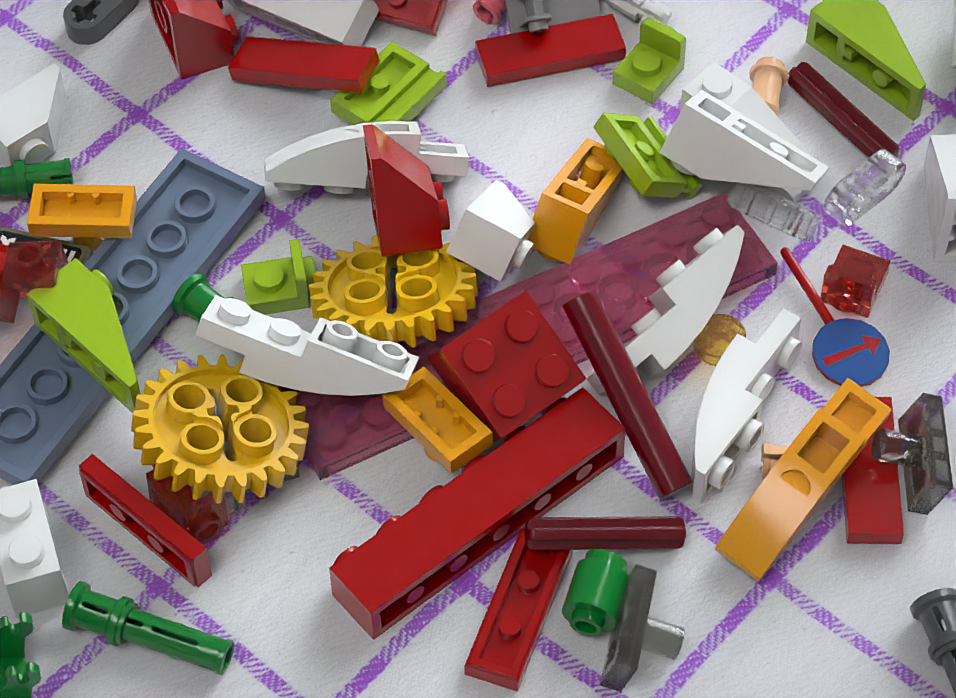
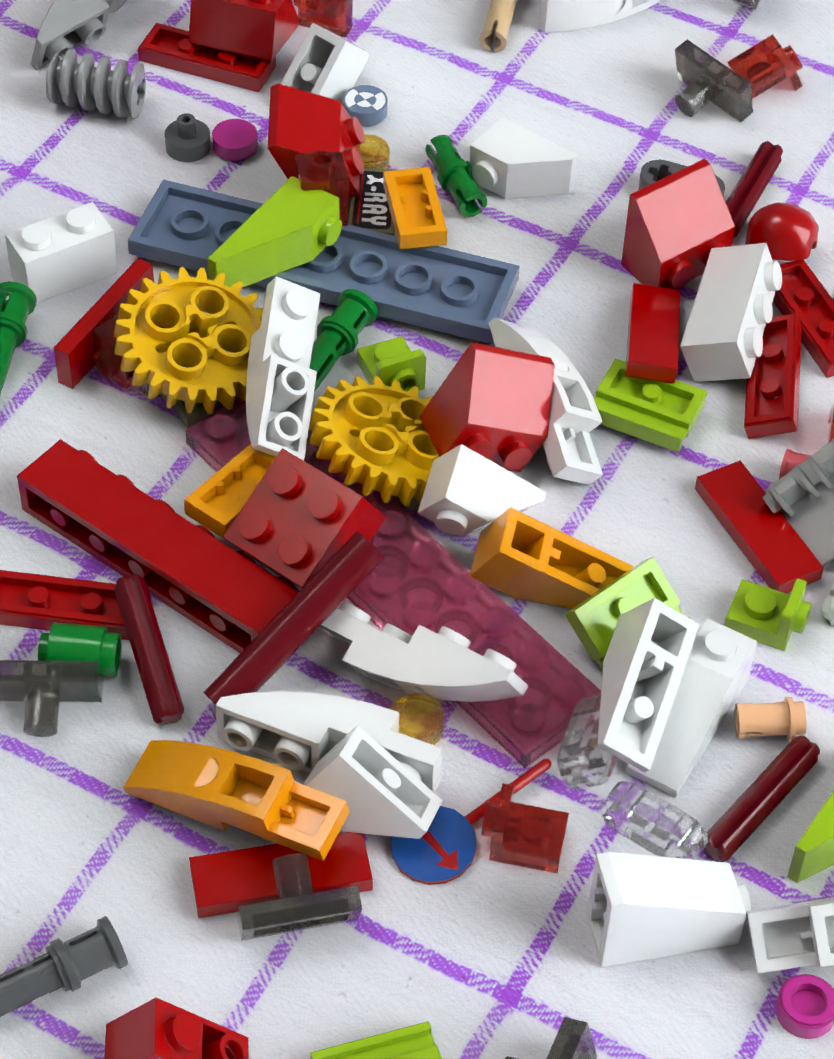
camera: 75 degrees right, 5 degrees down
(807, 375) = (377, 788): none -> white slope

